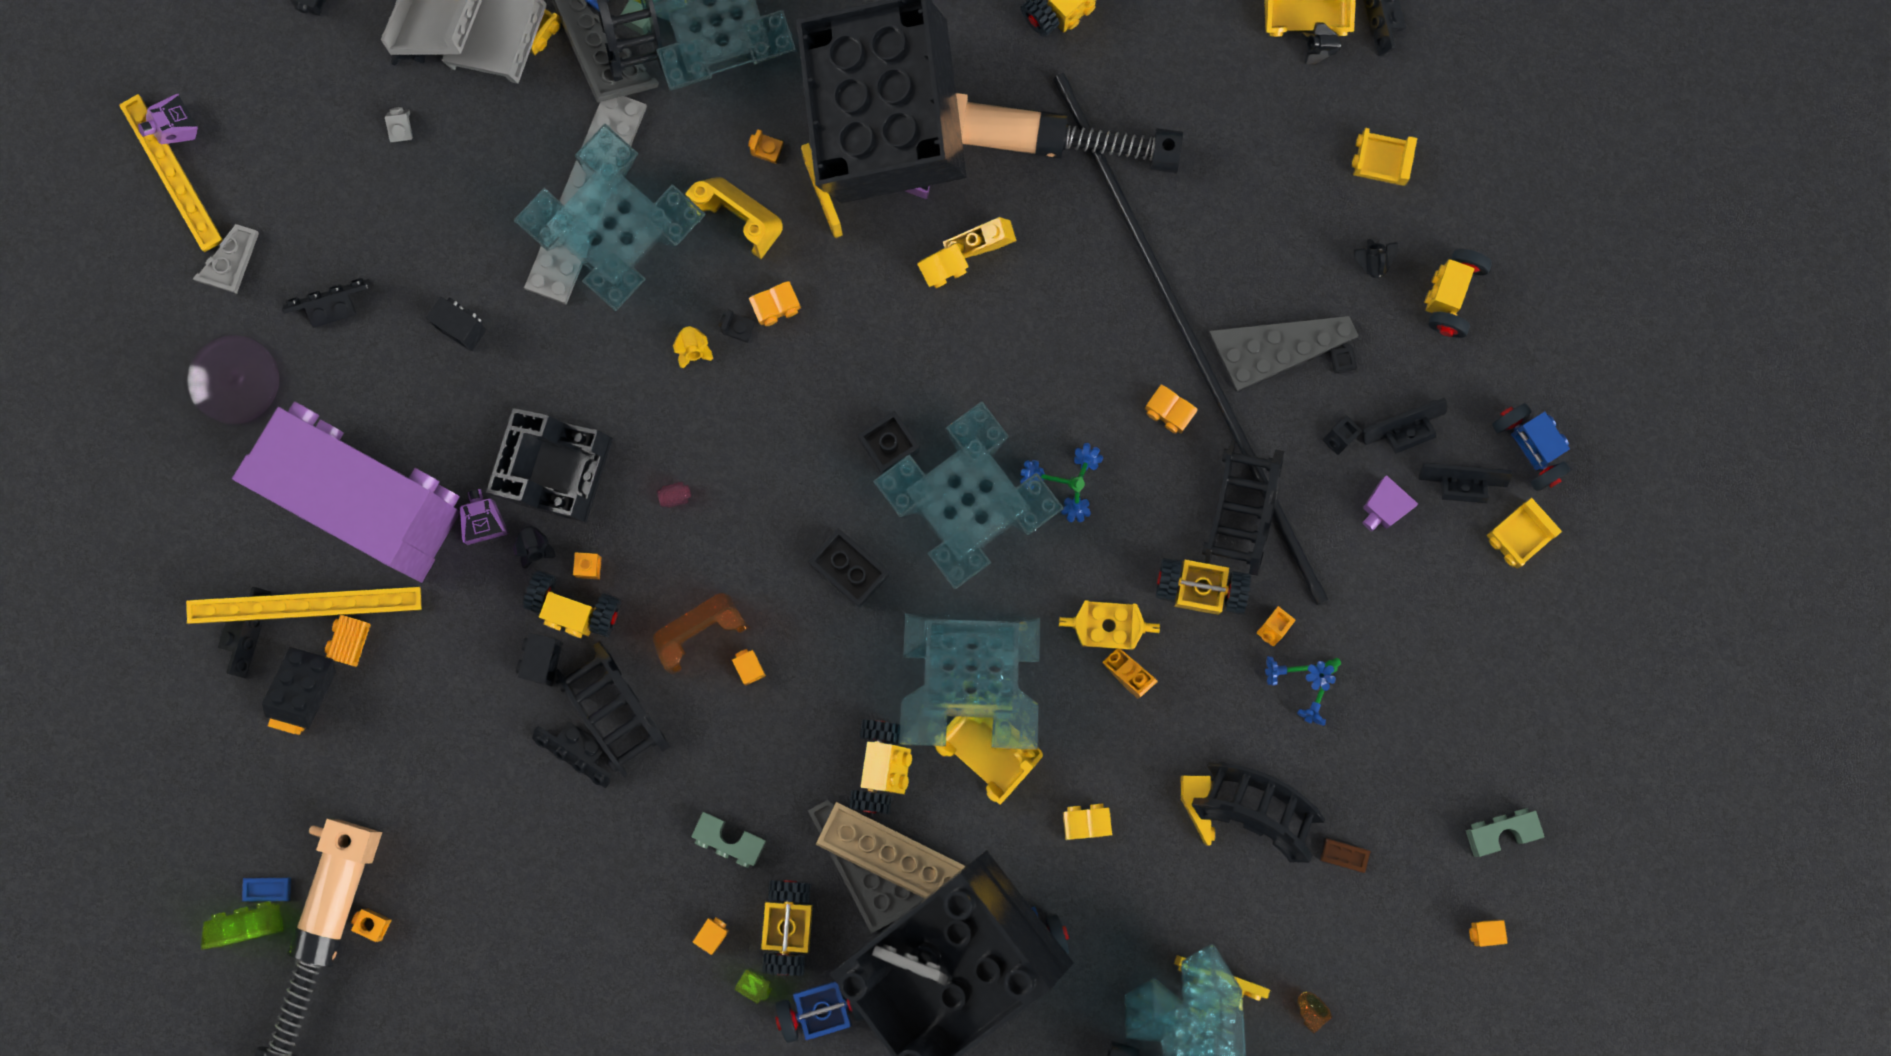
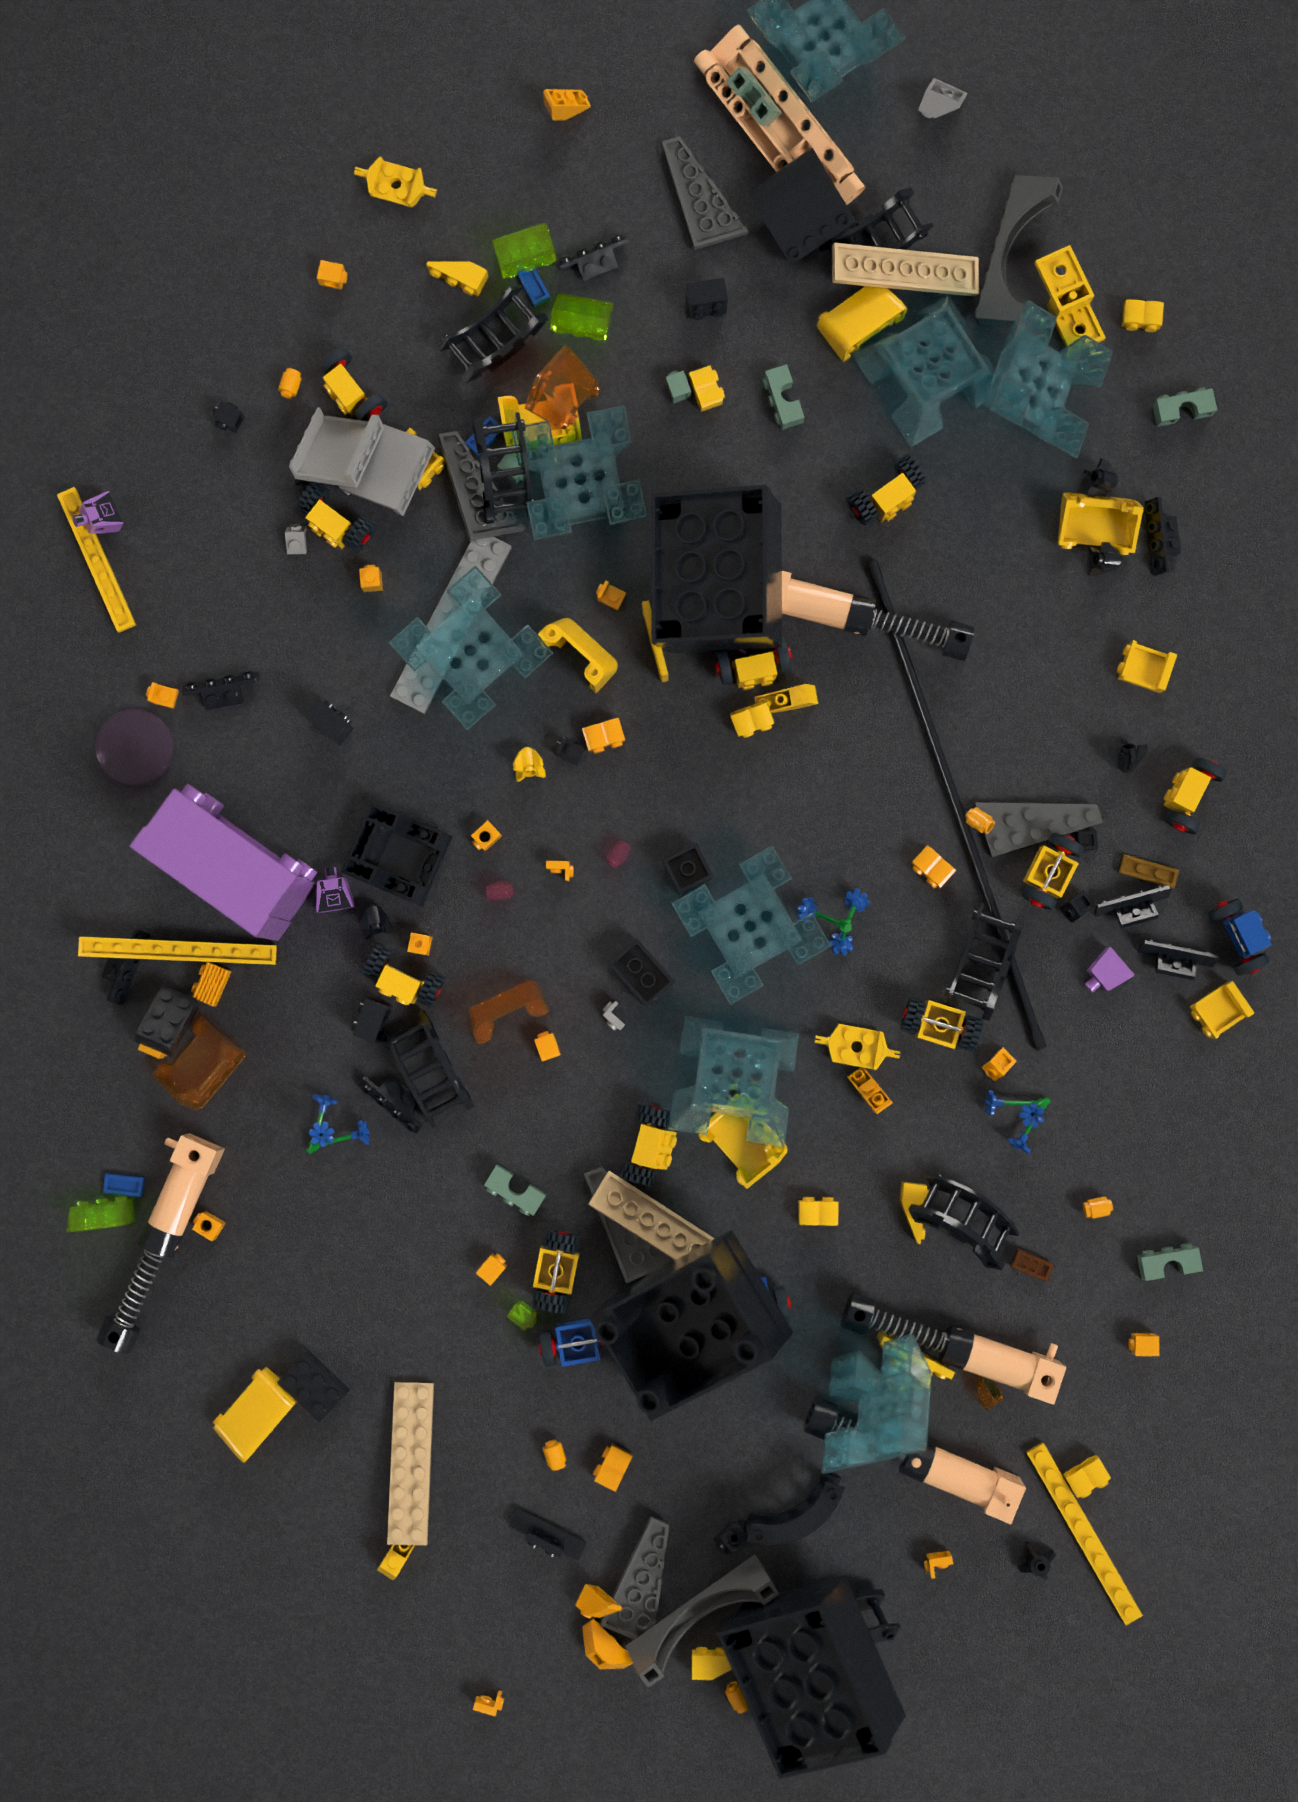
camera: 10 degrees right, 5 degrees up
(230, 261) = (140, 643): light grey wing -> none
(260, 317) = (162, 695): none -> light orange bracket
(345, 738) = (201, 1066): none -> clear orange windscreen
(437, 101) = (332, 525): none -> brick
(488, 158) = (371, 578): none -> light orange brick
(493, 797) = (321, 1135): none -> blue plant
(651, 423) = (494, 836): none -> light orange brick
(738, 458) = (558, 866): none -> light orange bracket
(806, 436) = (618, 854): none -> clear pink brick
(822, 628) = (613, 1021): none -> light grey bracket
(910, 962) = (656, 1317): light grey wing -> none
(937, 208) = (753, 669): none -> brick
(1217, 349) = (979, 820): none -> light orange brick
(1283, 964) = (967, 1351): none -> piece
(1307, 397) = (1051, 871): none -> brick
(1412, 778) = (1097, 1207): none -> light orange brick
(1417, 386) = (1148, 871): none -> pearl gold tile

